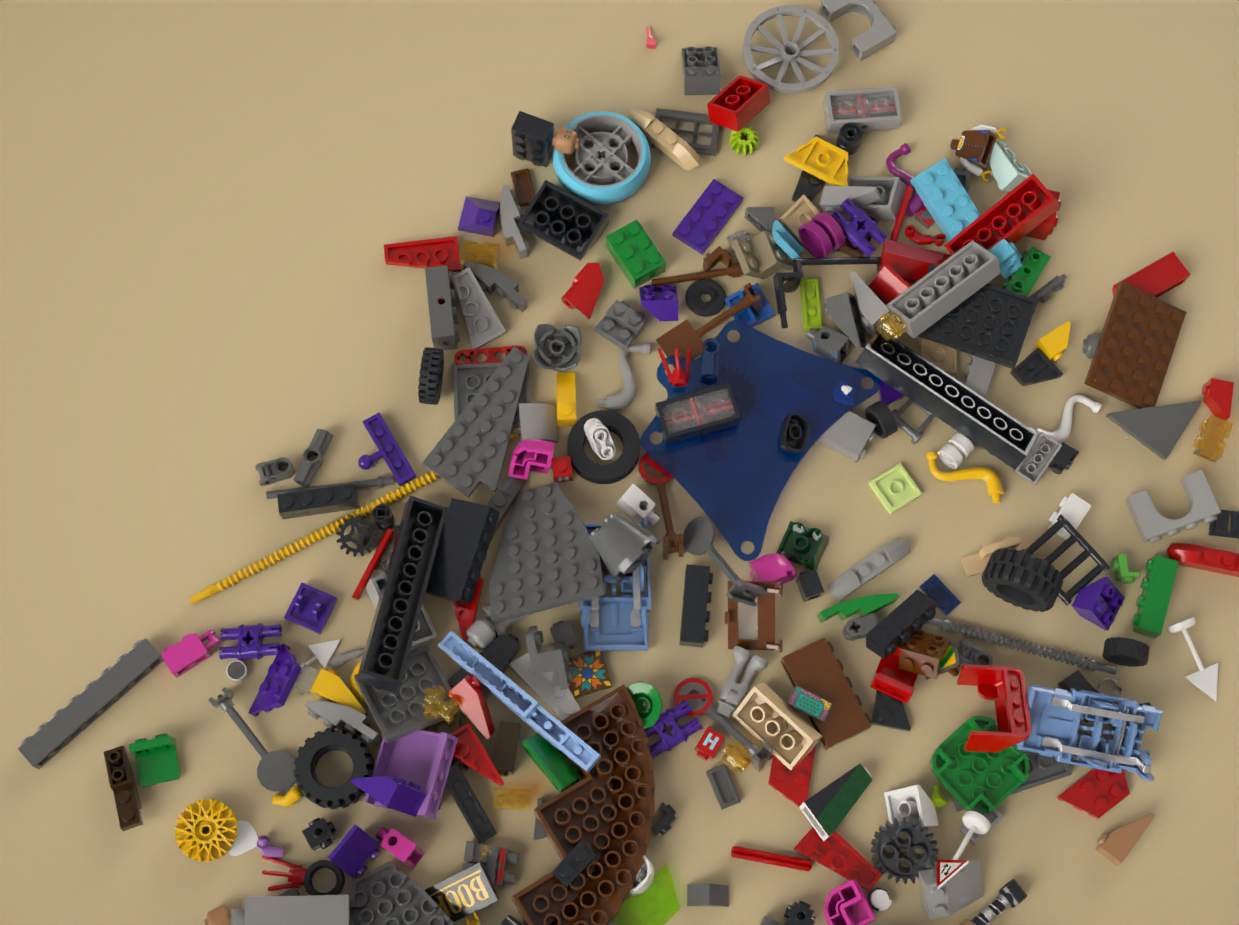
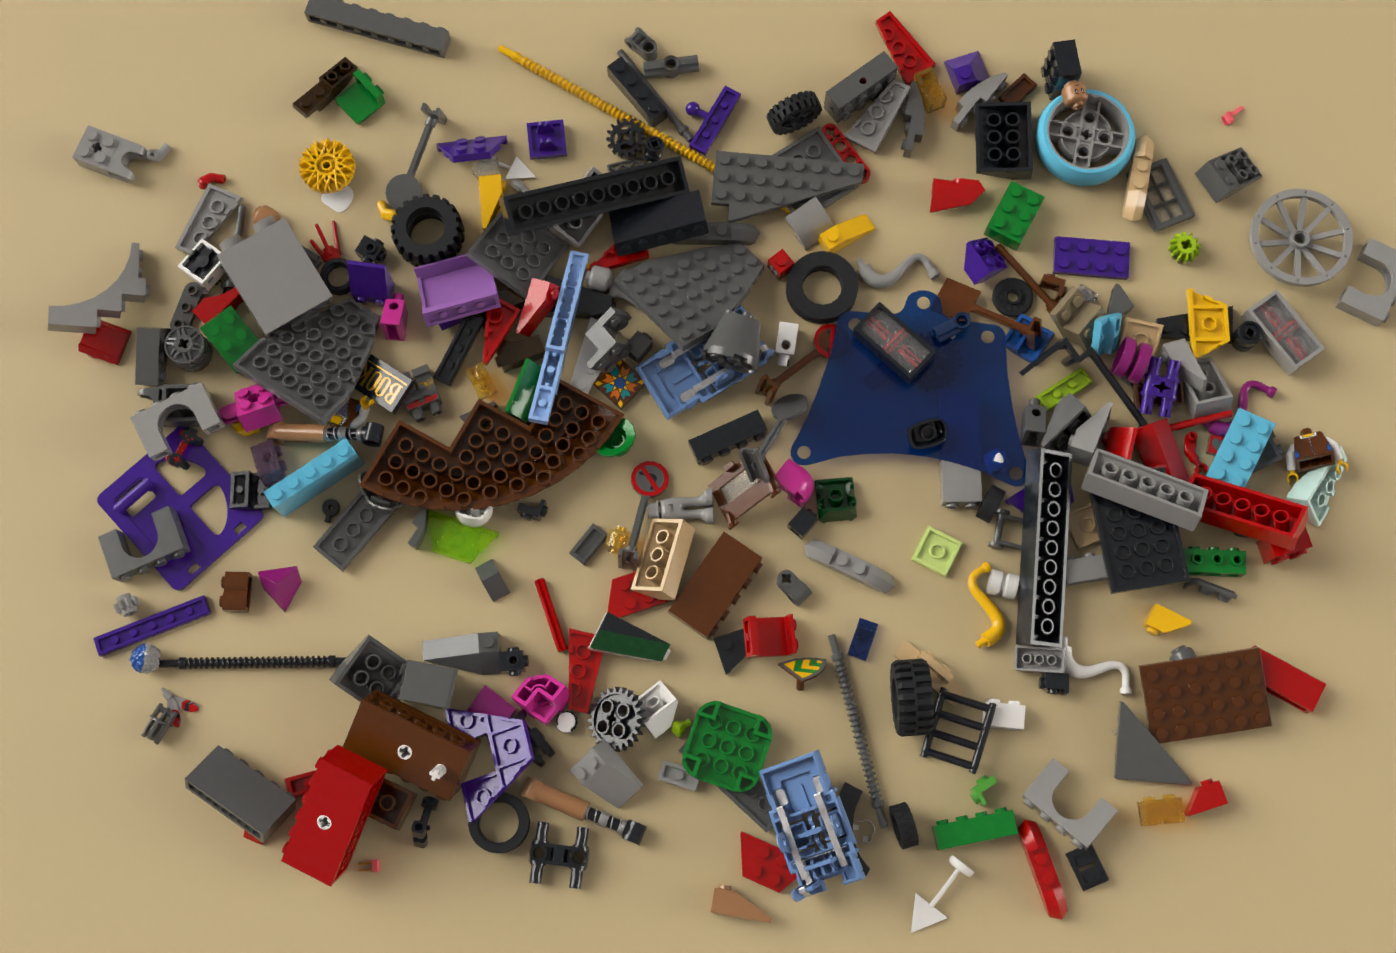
camera: 65 degrees right, 5 degrees up
(189, 652) = (457, 70): dark pink brick -> none
(237, 671) = (464, 115): flat silver tile -> none
(254, 637) = (492, 110): dark purple pin -> none
(267, 848) = (340, 220): medium lavender arm -> none
(341, 716) = (470, 214): light grey slope -> none
(372, 565) = (610, 164): red bar -> none
(393, 792) = (424, 280): dark purple slope -> none
(437, 707) = (522, 270): clear yellow hips -> none
(531, 456) = (774, 230): dark pink brick -> none
(547, 338) = (887, 187): dark grey brick -> none
(573, 864) = (450, 453): black plate -> none
(599, 439) = (824, 278): white brick -> none
(621, 324) = (940, 240): dark grey plate -> none
(679, 377) = (919, 309): red plant -> none
(679, 733) = (611, 481): dark purple pin -> none
(709, 744) = (616, 512): red brick -> none
(738, 103) = (1214, 221): red brick -> none
(810, 703) = (695, 574): tile -> none
(863, 605) = (812, 577): green slope -> none
(890, 326) = (1077, 461): clear yellow head -> none
(901, 624) = (811, 615): black brick -> none
(923, 653) = (798, 646): reddish brown bracket -> none
(948, 868) = (619, 760): white piece -> none
(972, 654) = (822, 691): dark grey piece -> none
(1007, 257) = (1213, 530): medium azure brick -> none
(1009, 693) = (808, 734): red windscreen -> none
(1035, 369) = (1127, 617): black wing -> none
(1099, 603) = (938, 782): dark purple slope -> none

